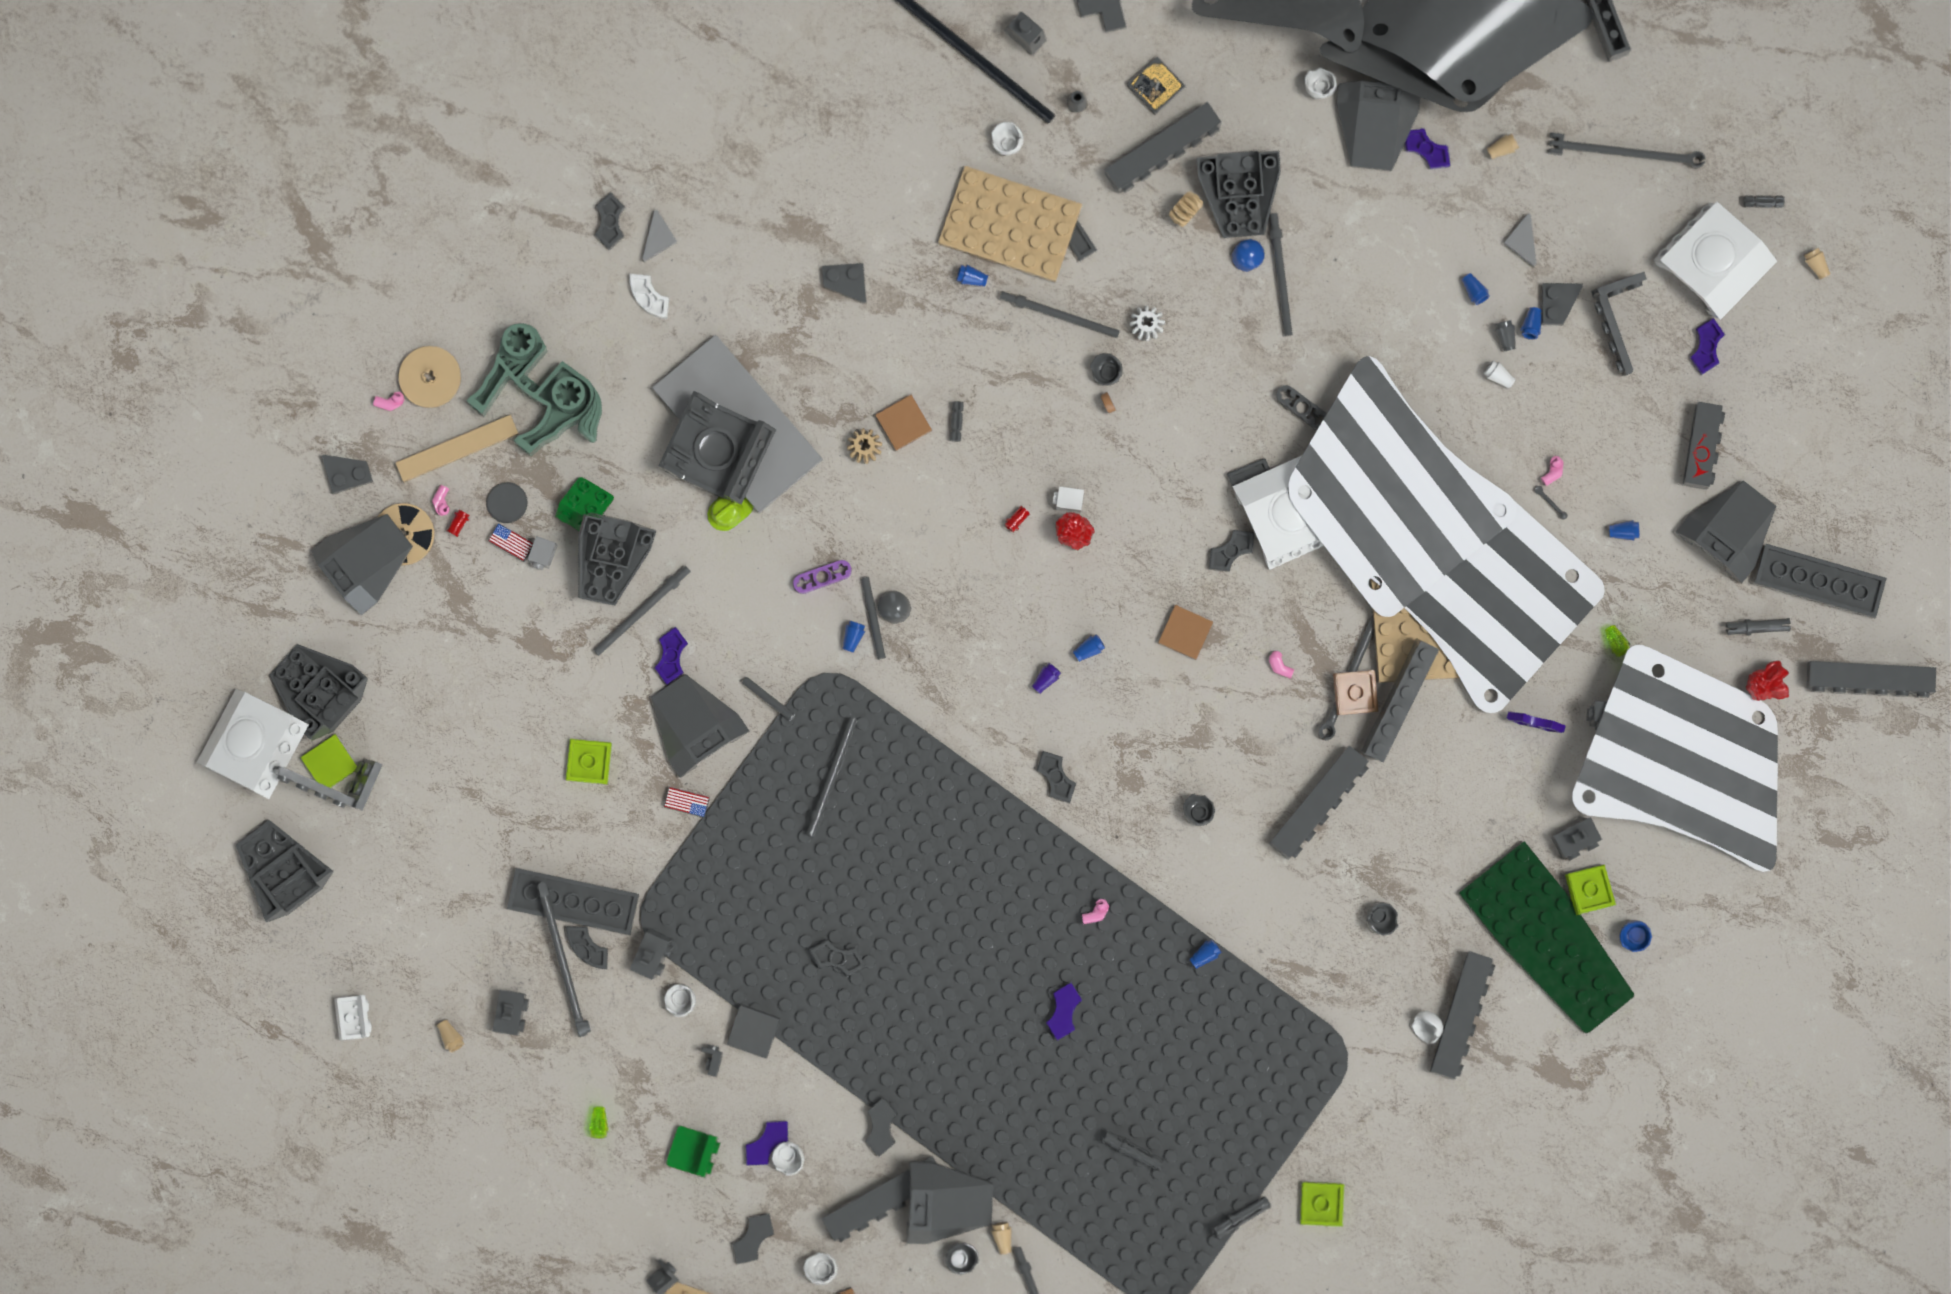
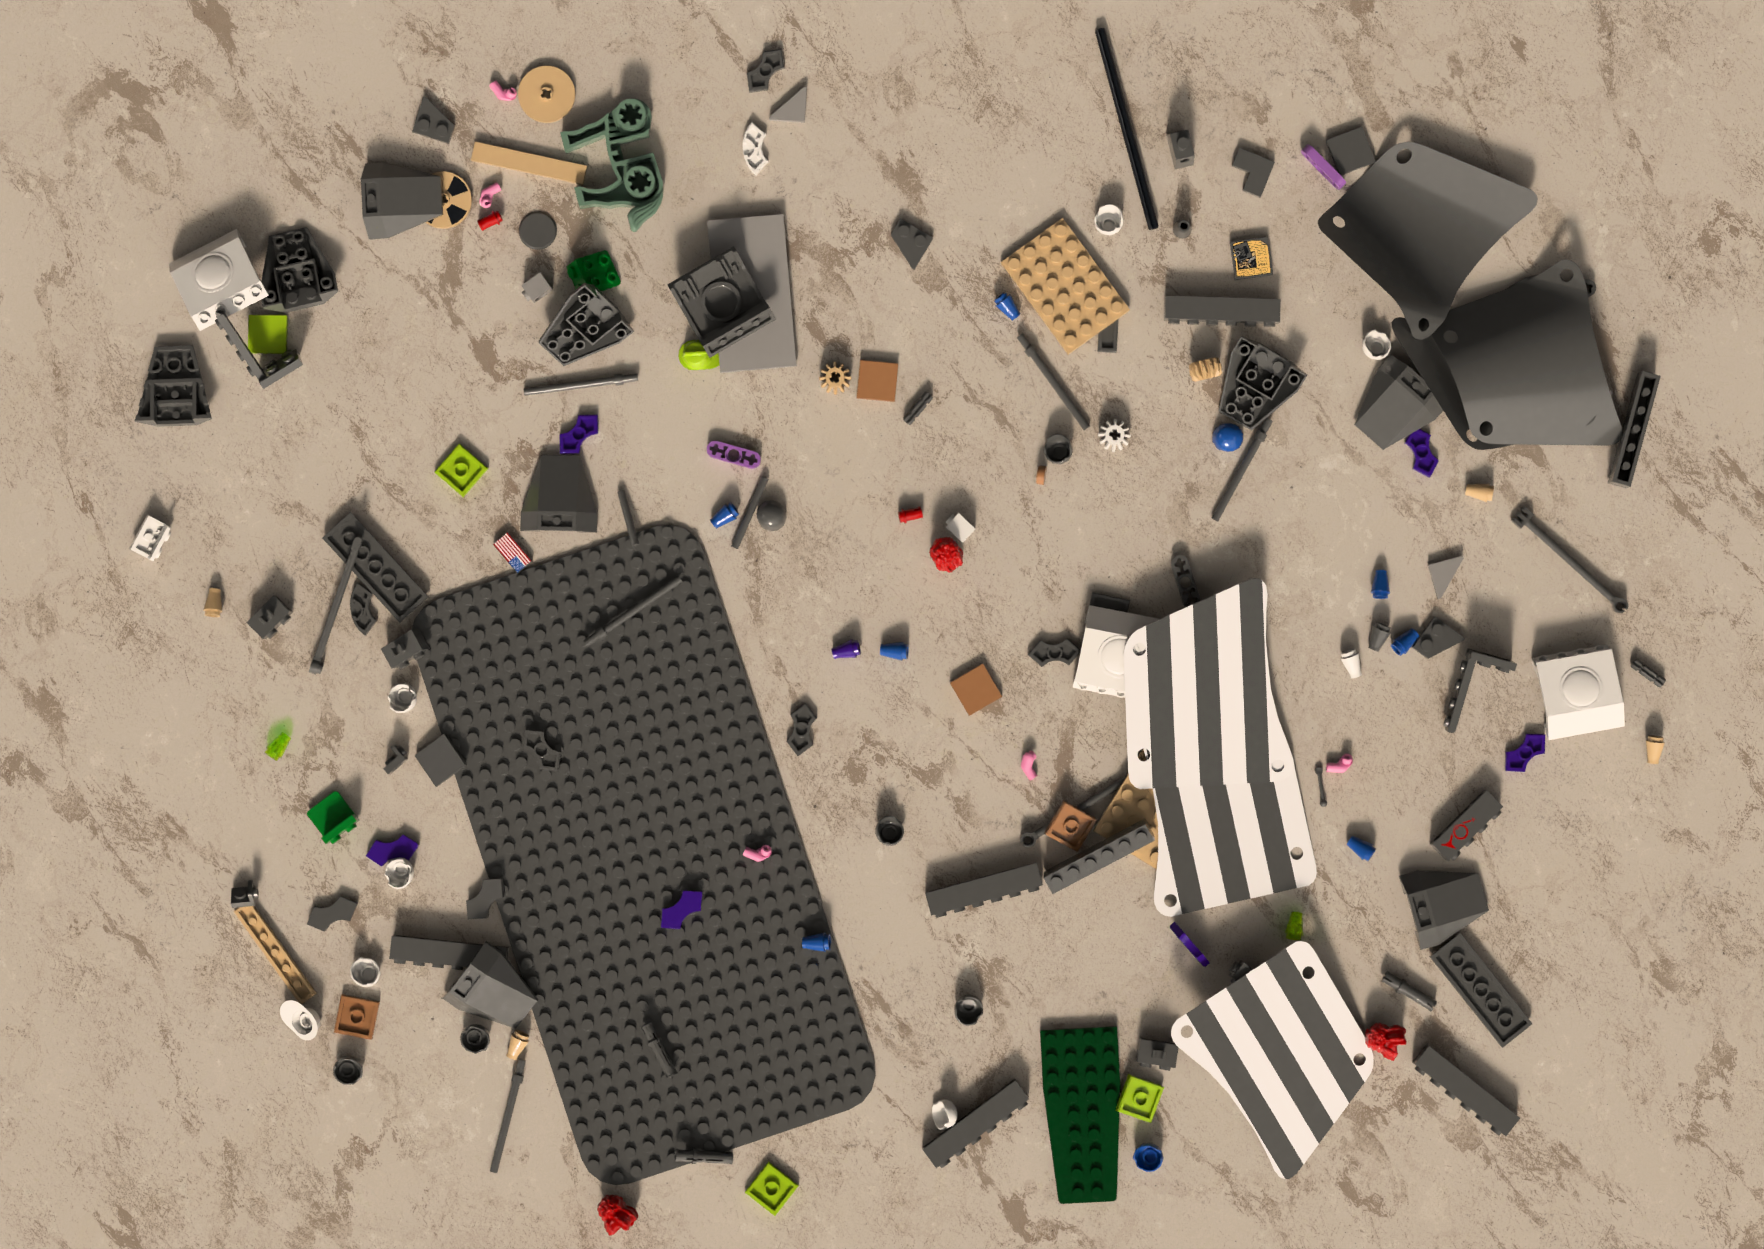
camera: 30 degrees right, 5 degrees up
(511, 542) = (519, 263): tile -> none

